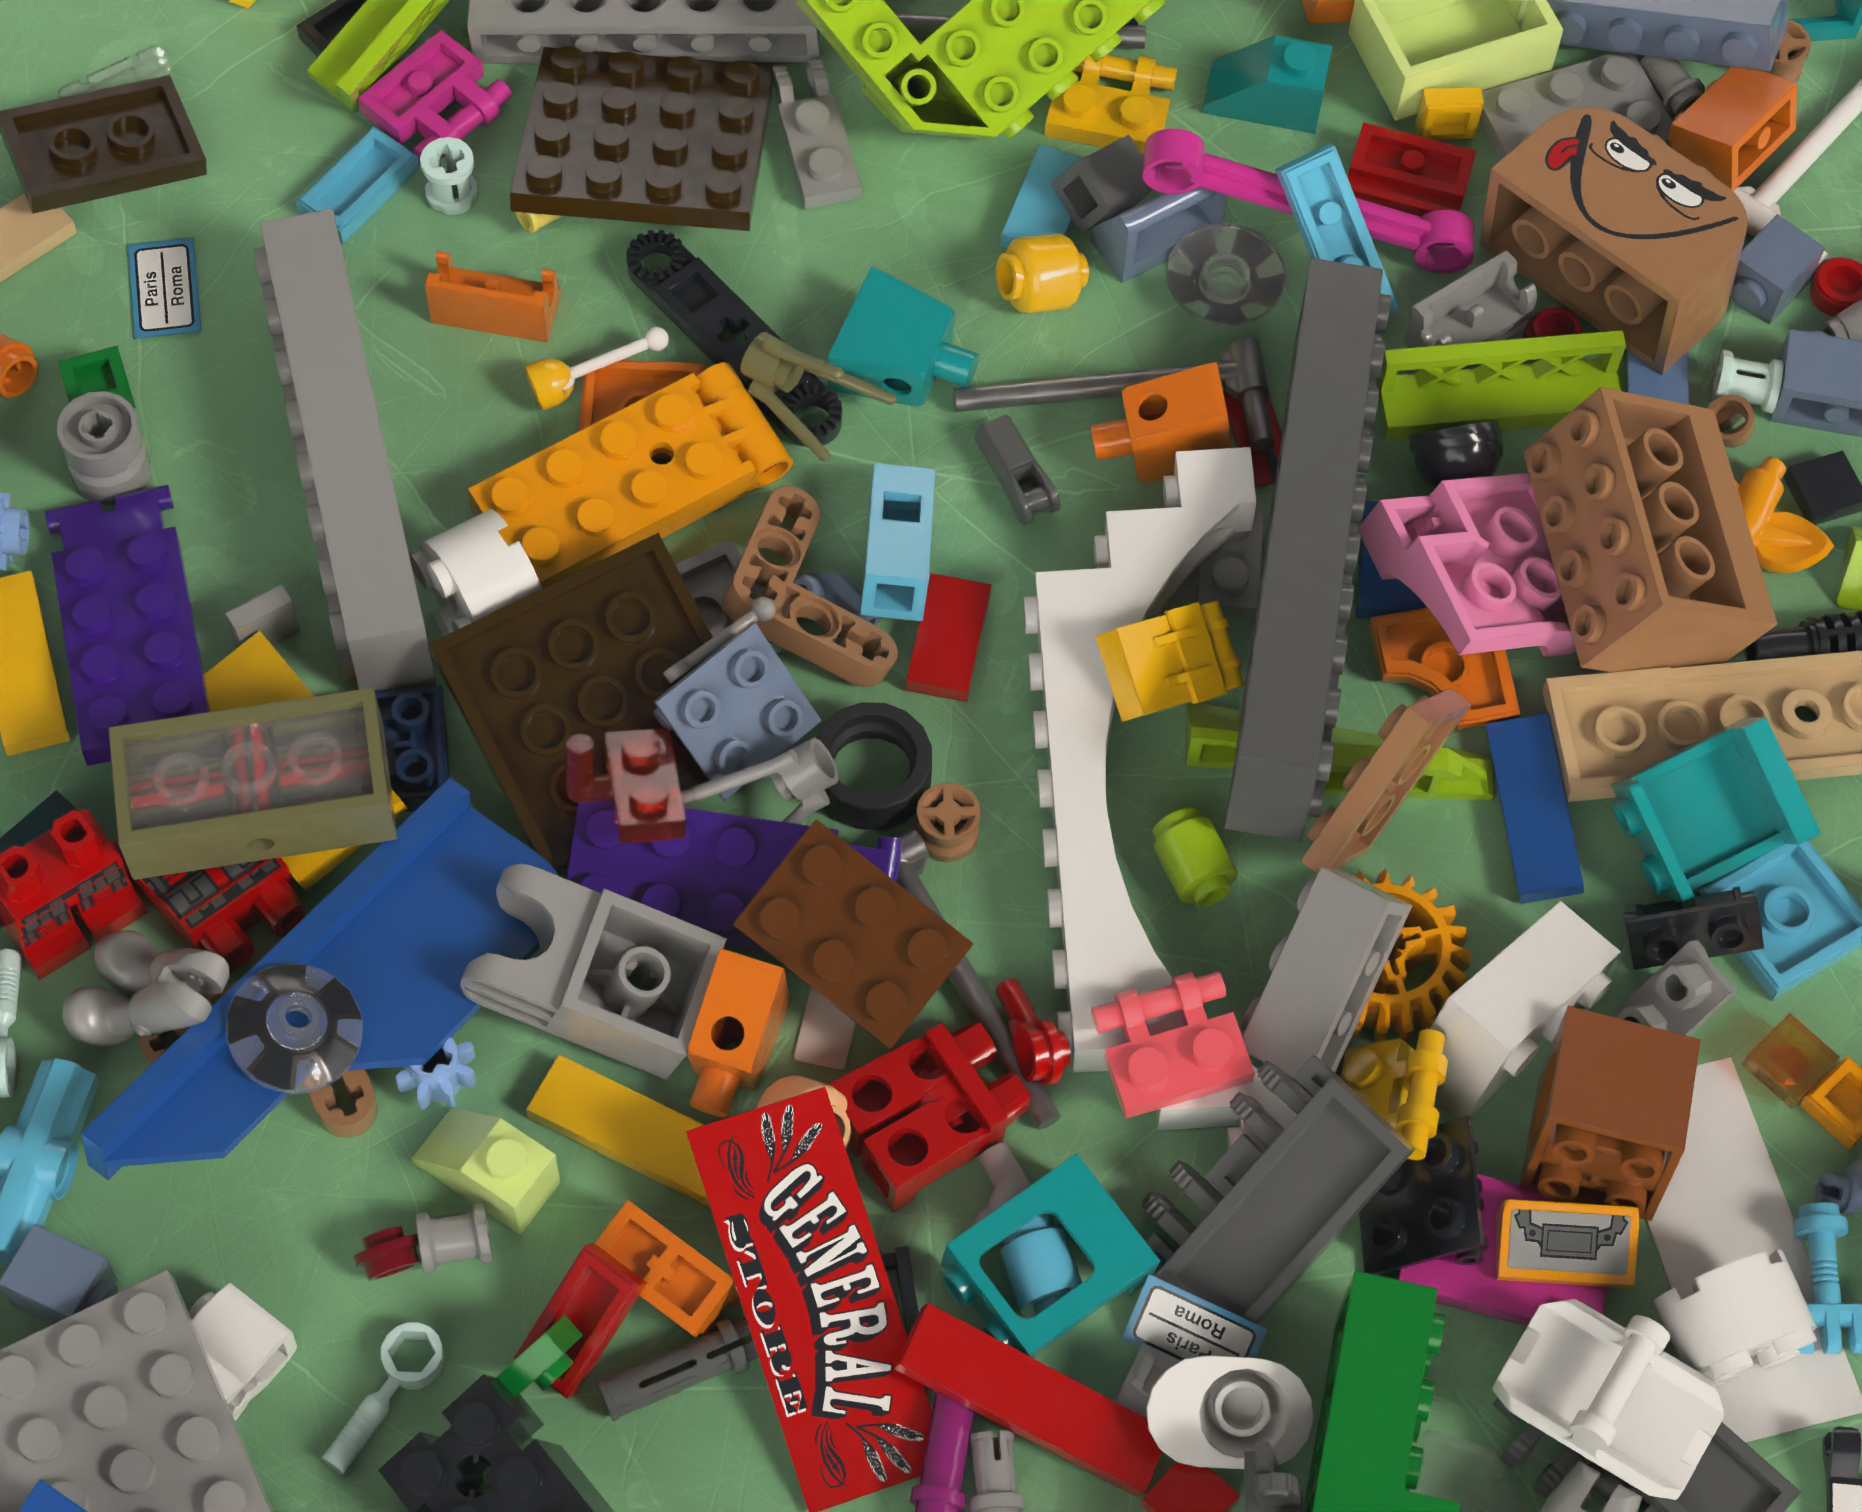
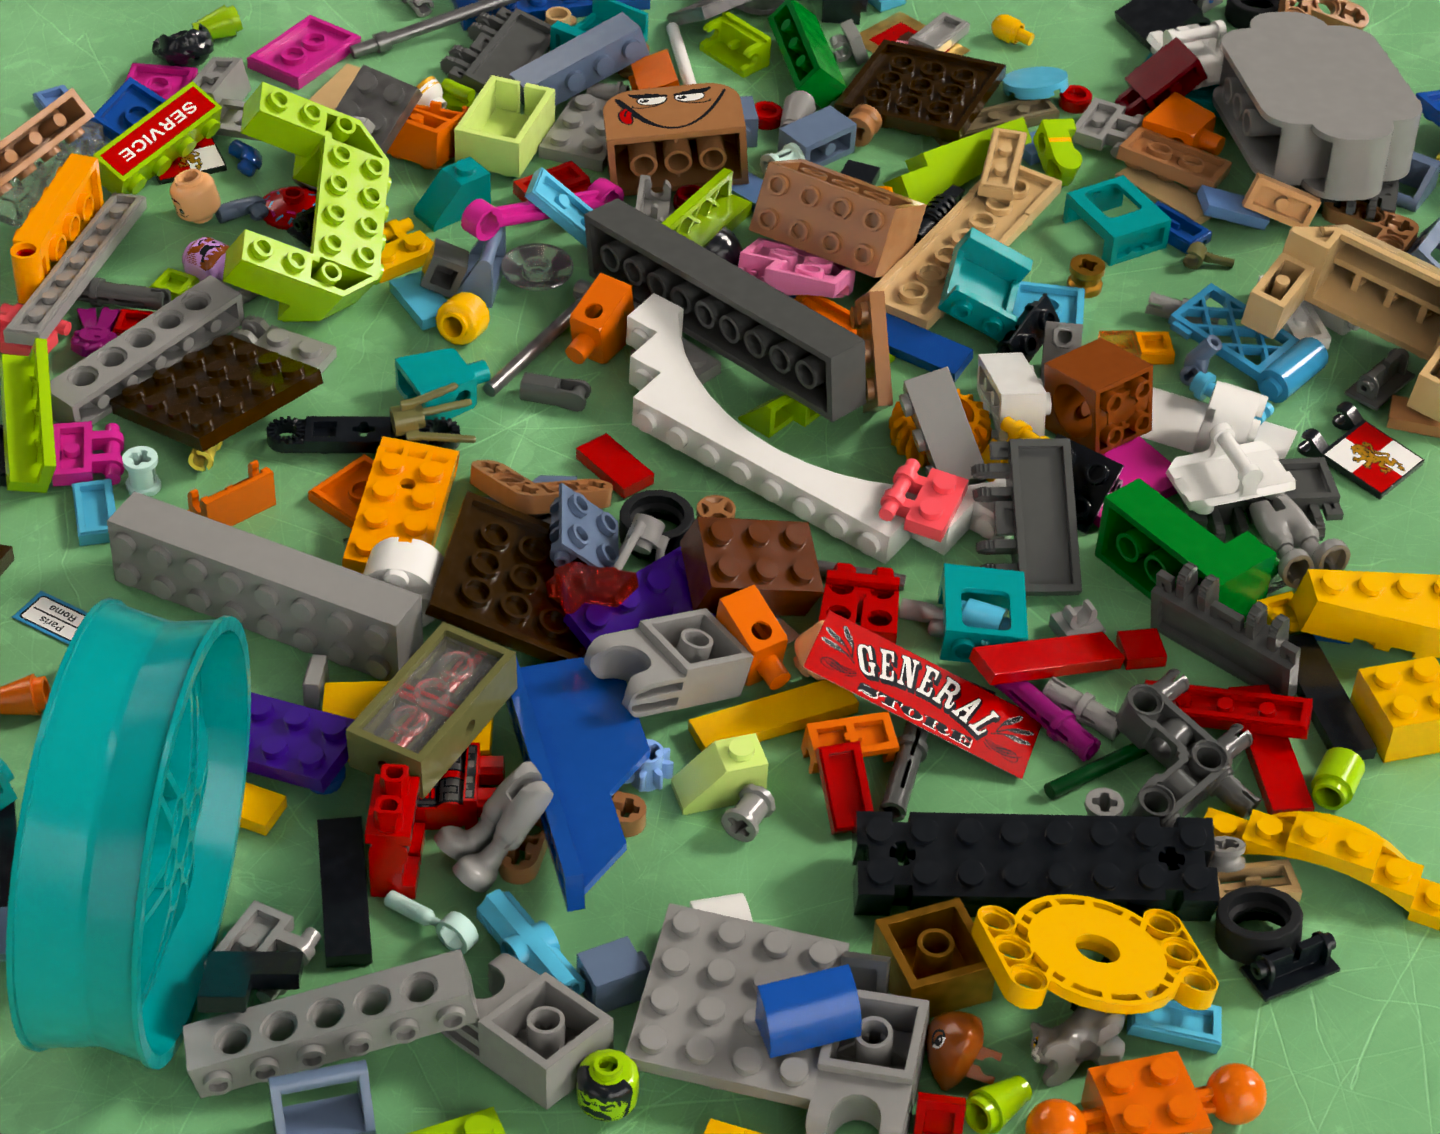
camera: 50 degrees left, 20 degrees down
(288, 1056) = (586, 778): dish -> none
(376, 1405) = (793, 883): light aqua piece -> none
(388, 1253) = (731, 841): dark red plate -> none
(543, 1359) = (856, 796): green plate -> none
(554, 380) = (306, 508): hinge -> none
(762, 610) = (546, 491): light grey hinge -> none
(898, 542) = (552, 441): medium azure brick -> none
(1037, 1044) = (871, 552): red plate -> none
(1170, 660) = (730, 384): yellow piece -> none
(1189, 1325) = (1057, 591): sticker -> none
(1194, 858) = (827, 452): lime brick -> none
(1221, 1405) = (1120, 595): white piece -> none
(1449, 113) = (540, 154): yellow tile -> none
(1567, 1243) = (1143, 451): slope -> none

